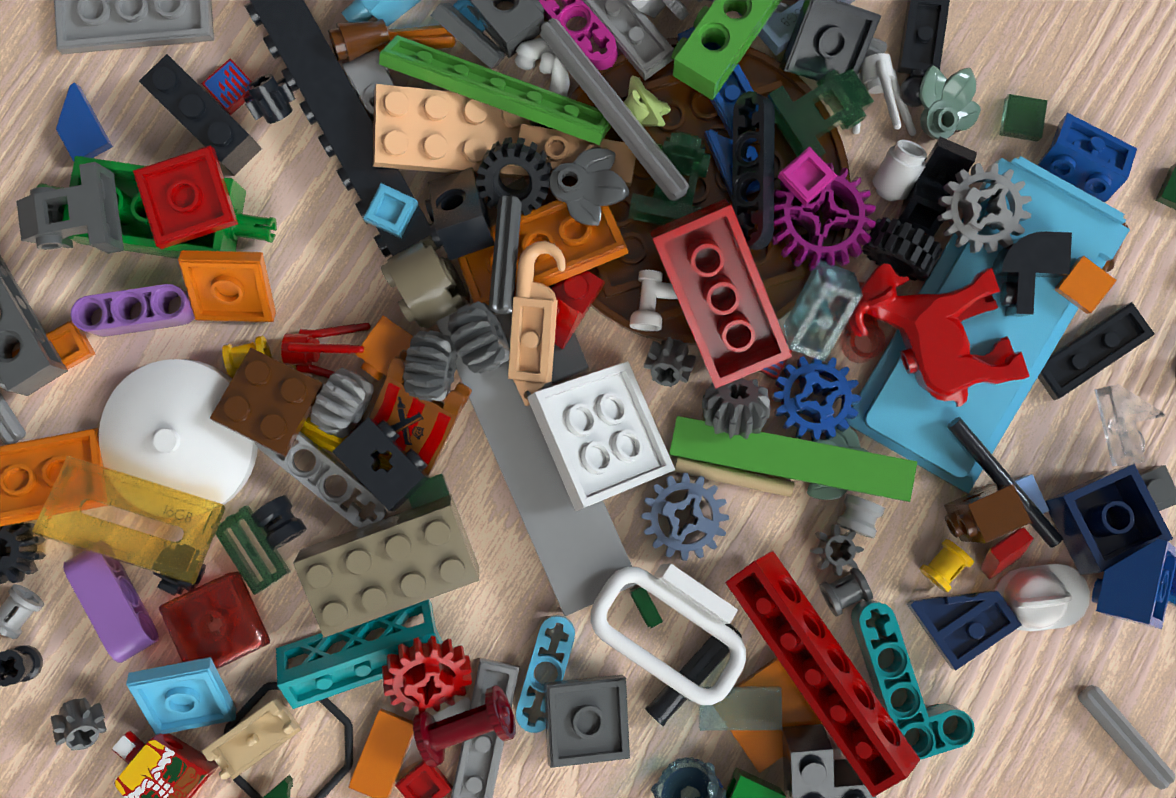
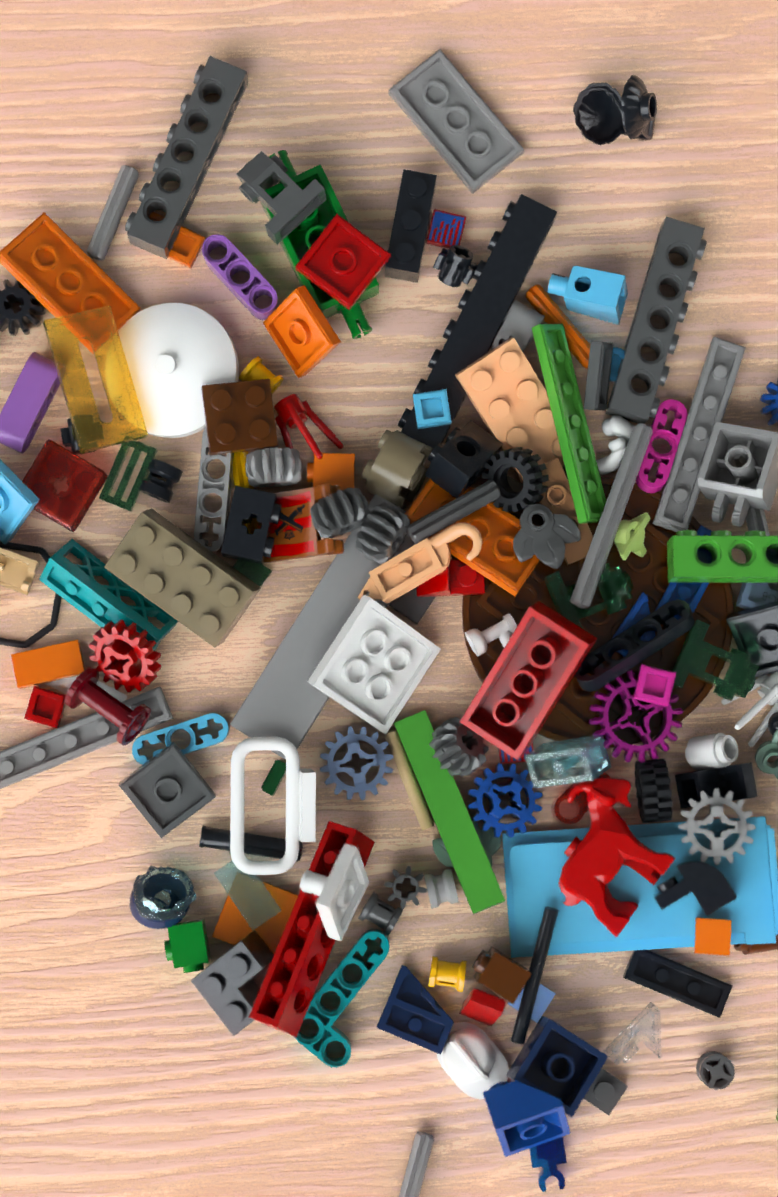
camera: 50 degrees right, 0 degrees up
(80, 126) = (344, 146): blue tile -> none
(357, 38) = (540, 299): reddish brown cone -> none
(669, 362) = (459, 678): dark grey gear -> none
(807, 622) = (339, 892): none -> white tile

